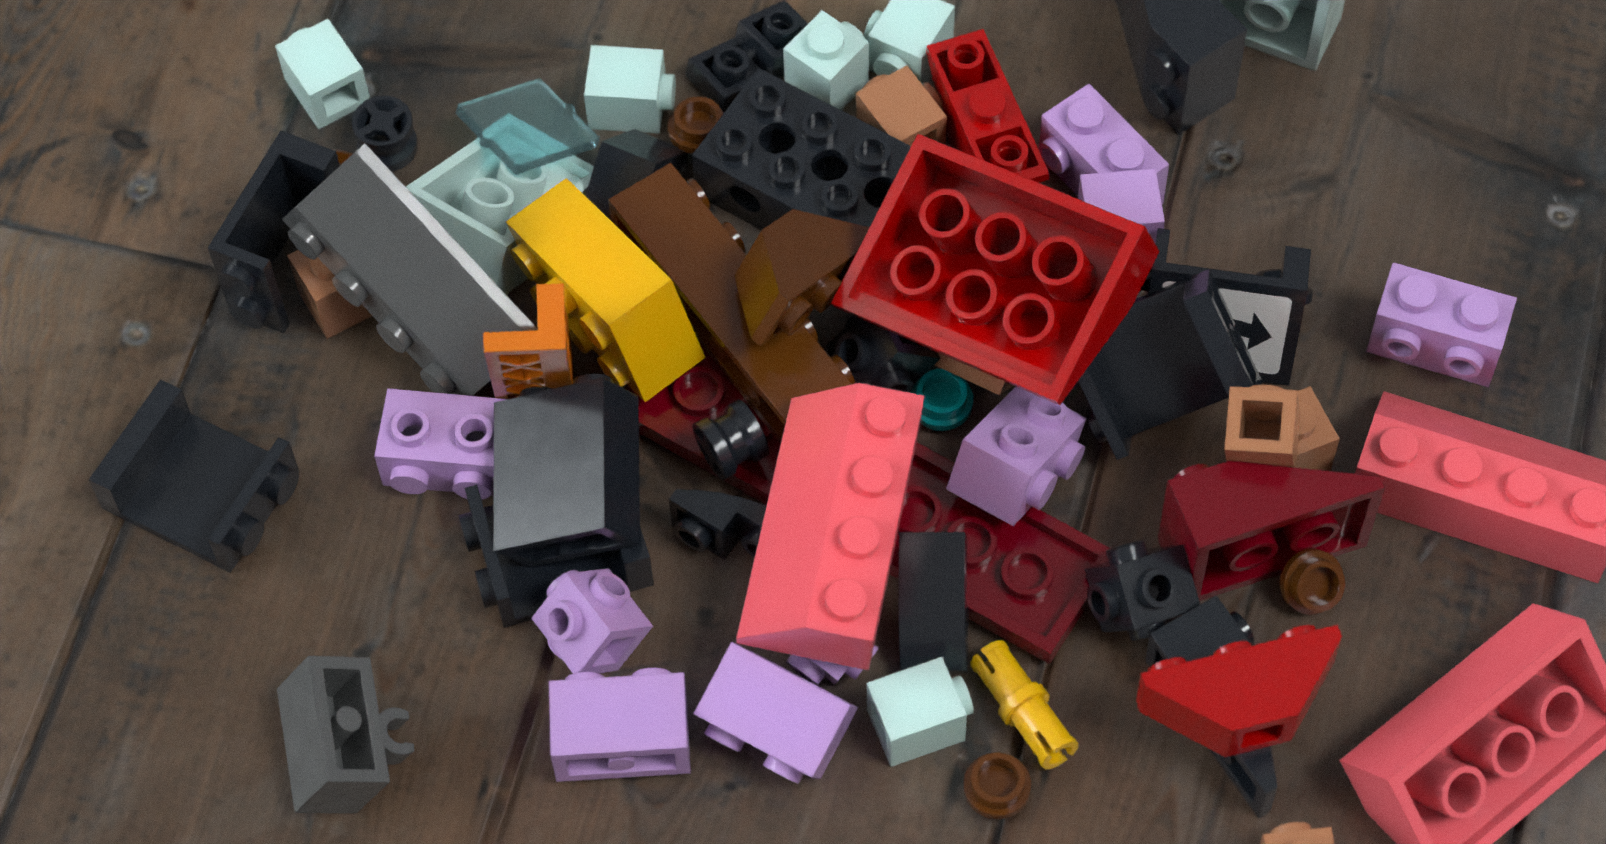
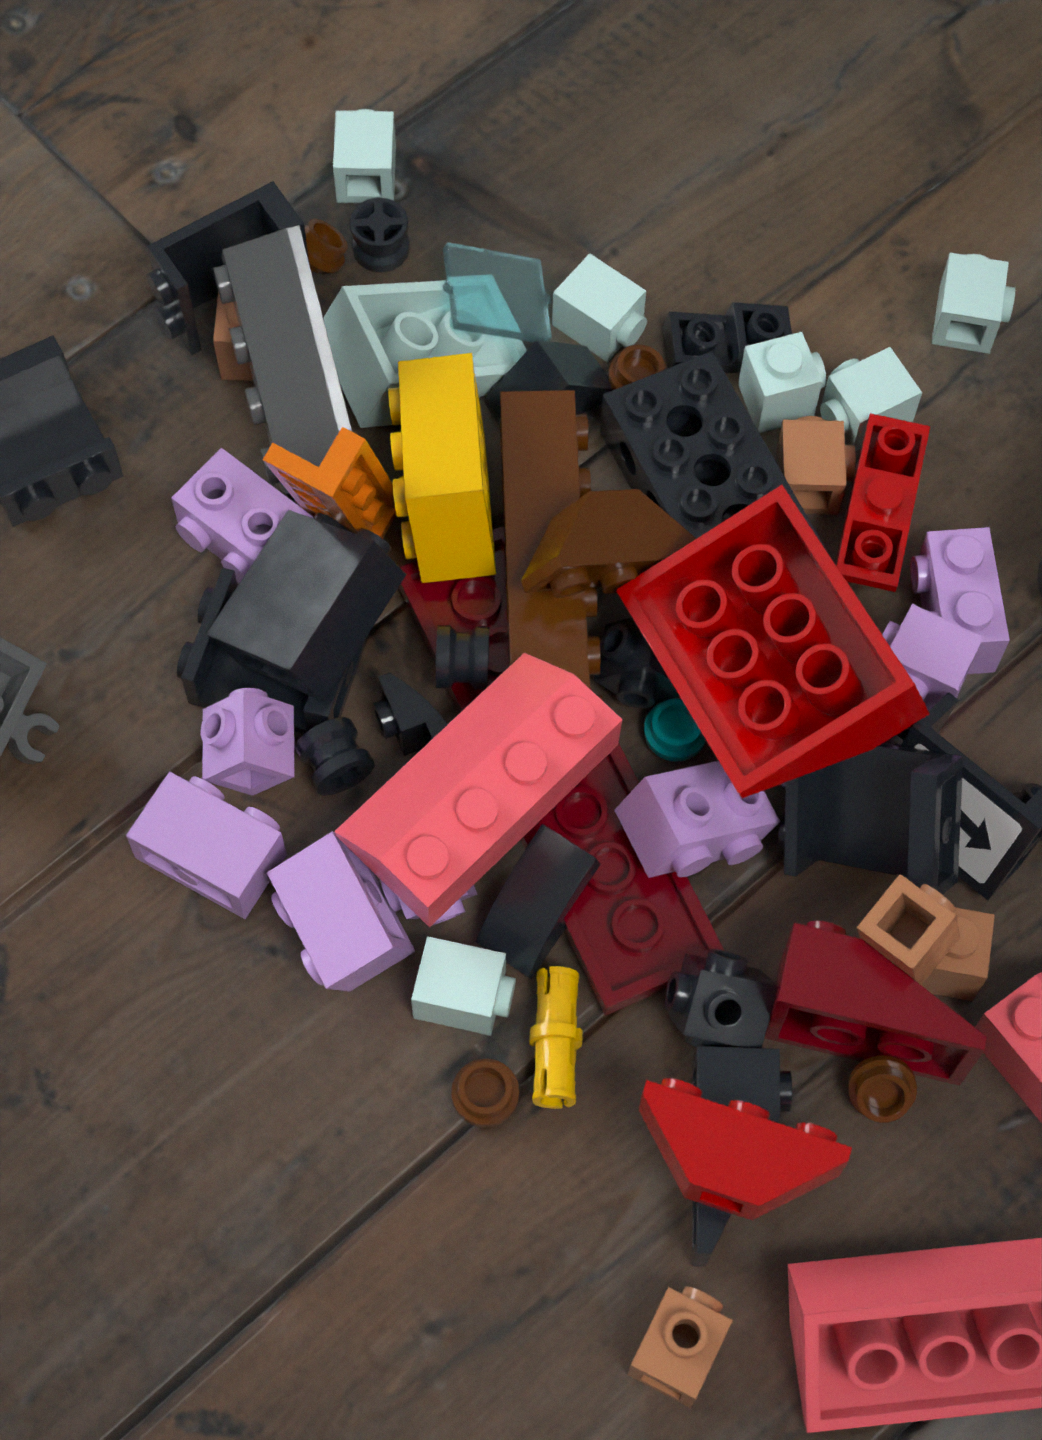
camera: 30 degrees right, 5 degrees up
(672, 590) = (334, 756): none -> black wheel

